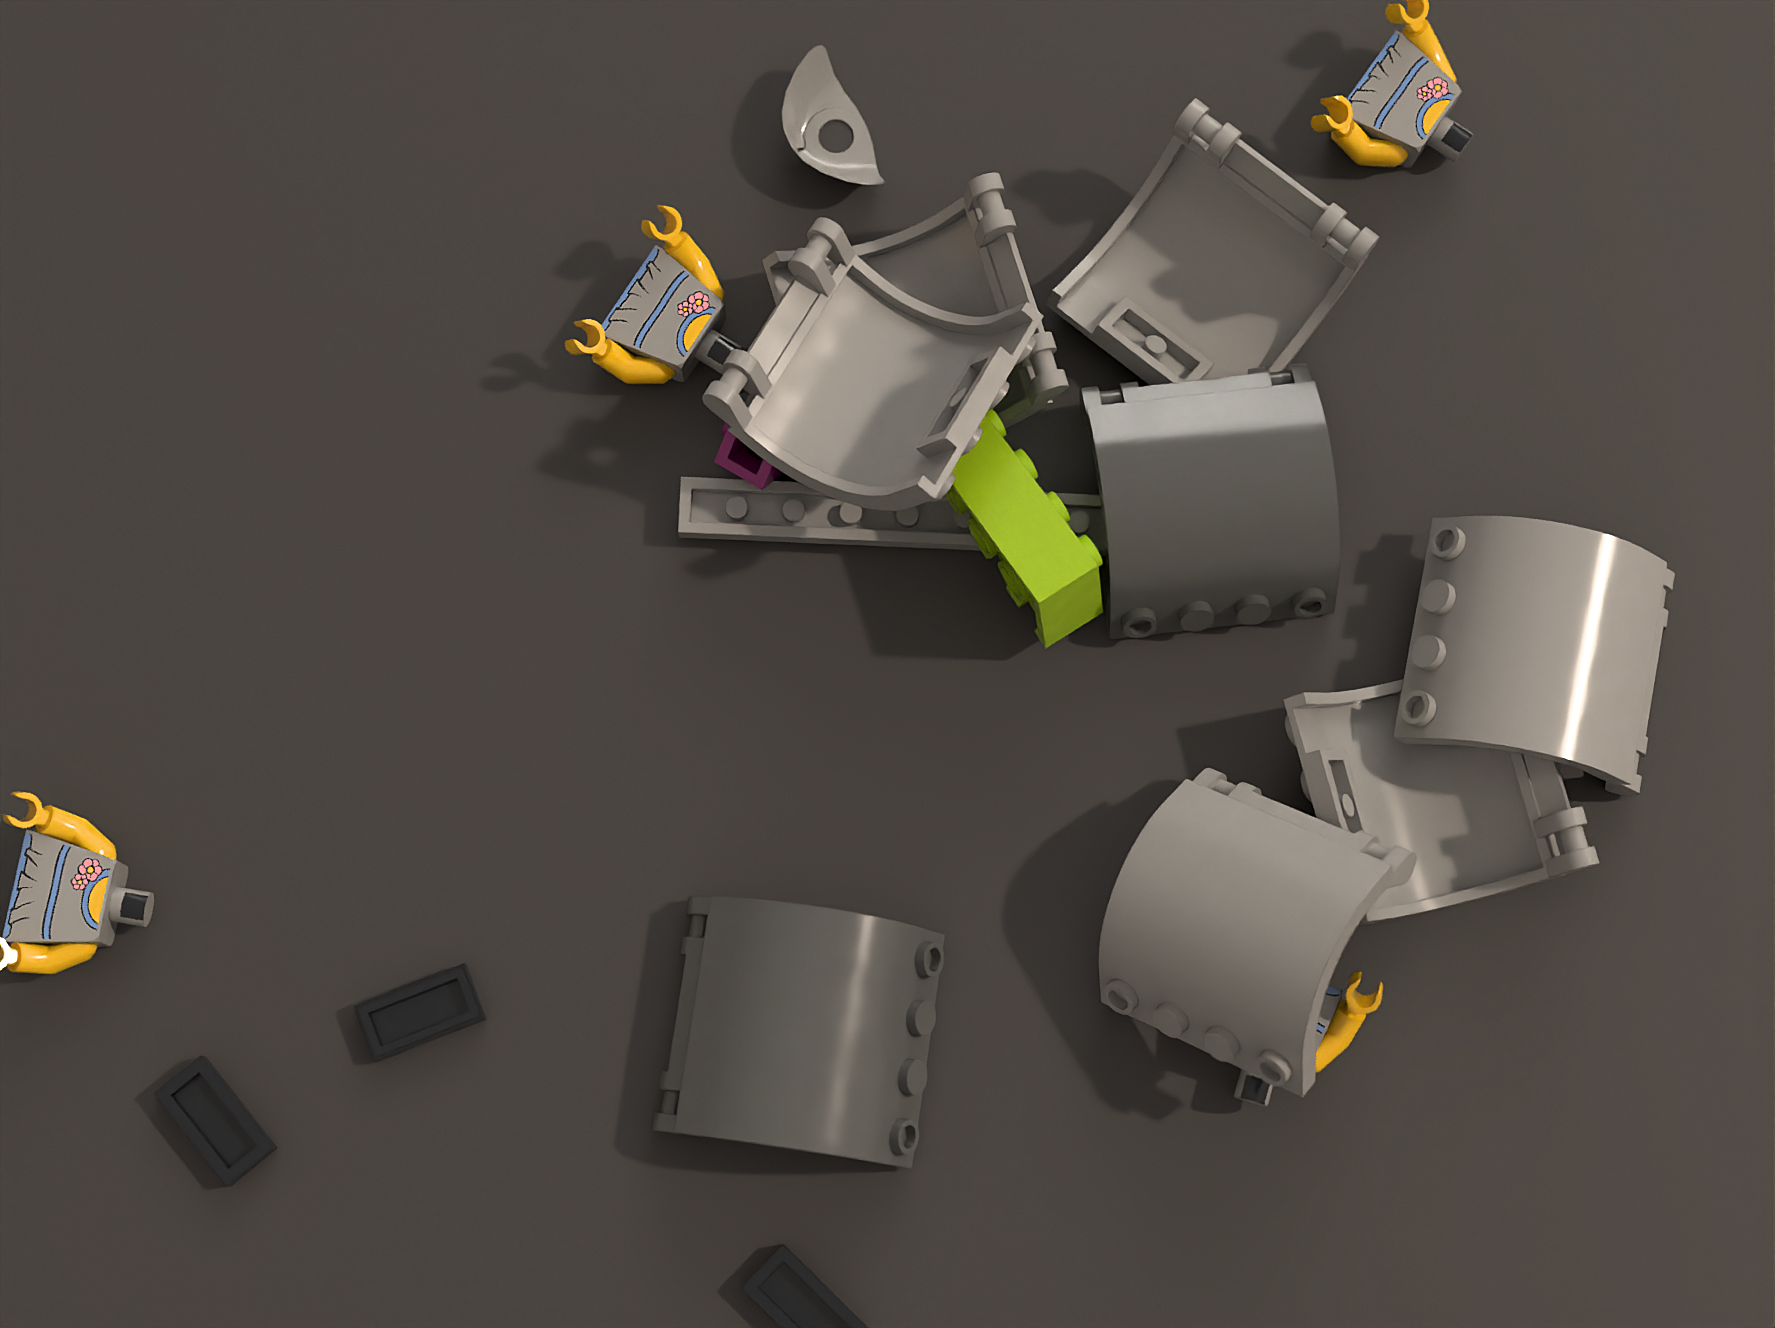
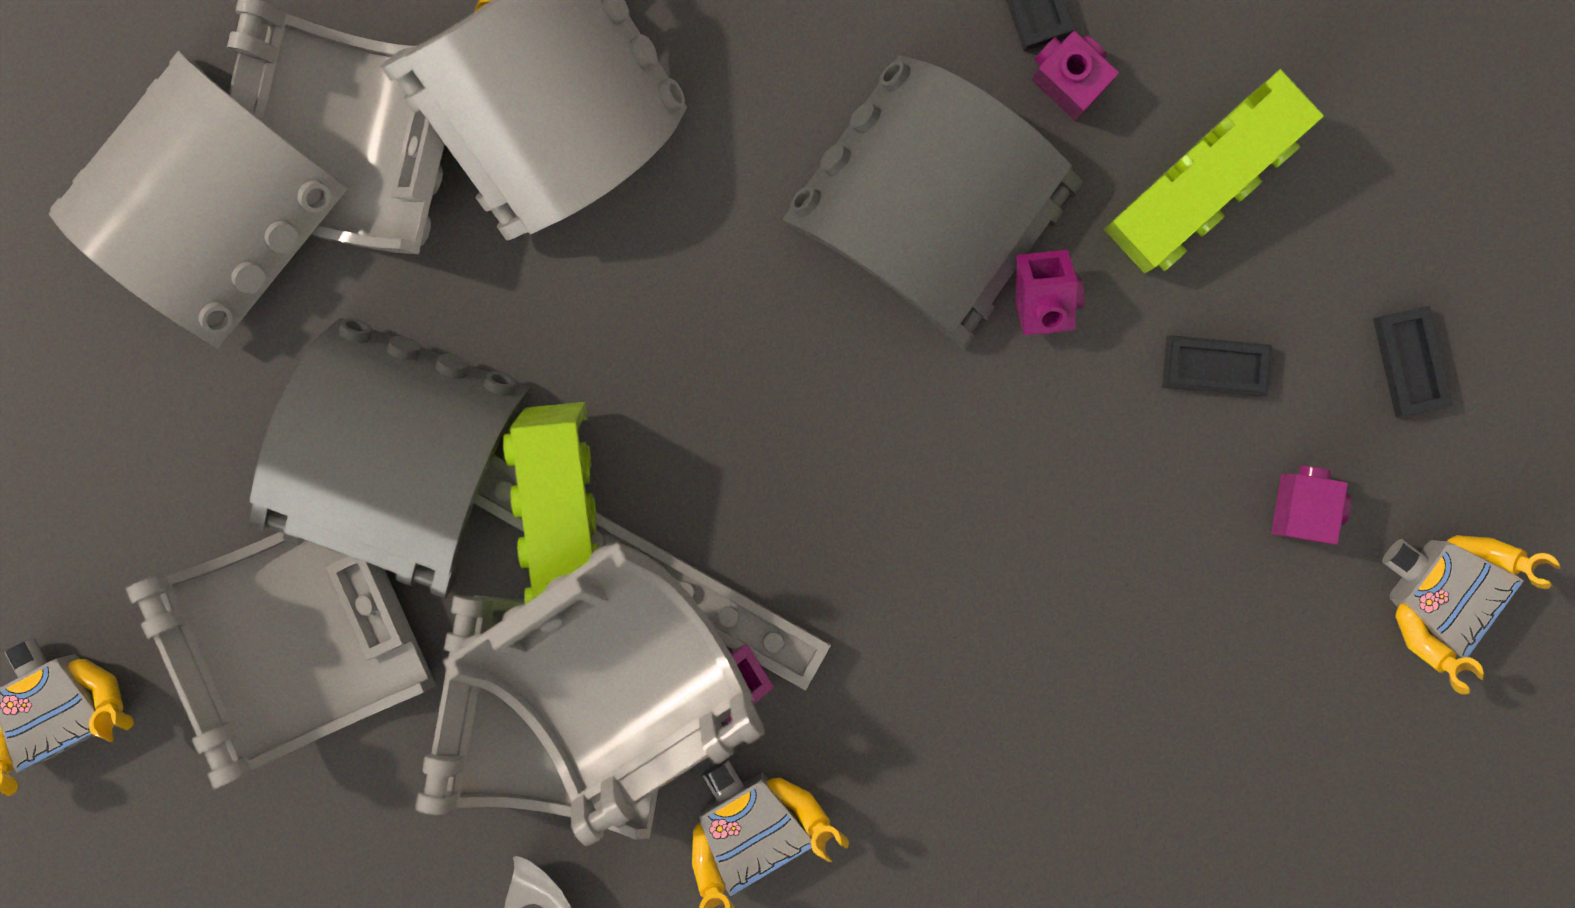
camera: 145 degrees left, 10 degrees up
(255, 910) = (1311, 506): none -> magenta brick
(523, 1200) = (1213, 172): none -> lime wedge
(634, 991) = (1047, 292): none -> magenta brick
(719, 1240) = (1073, 73): none -> magenta brick

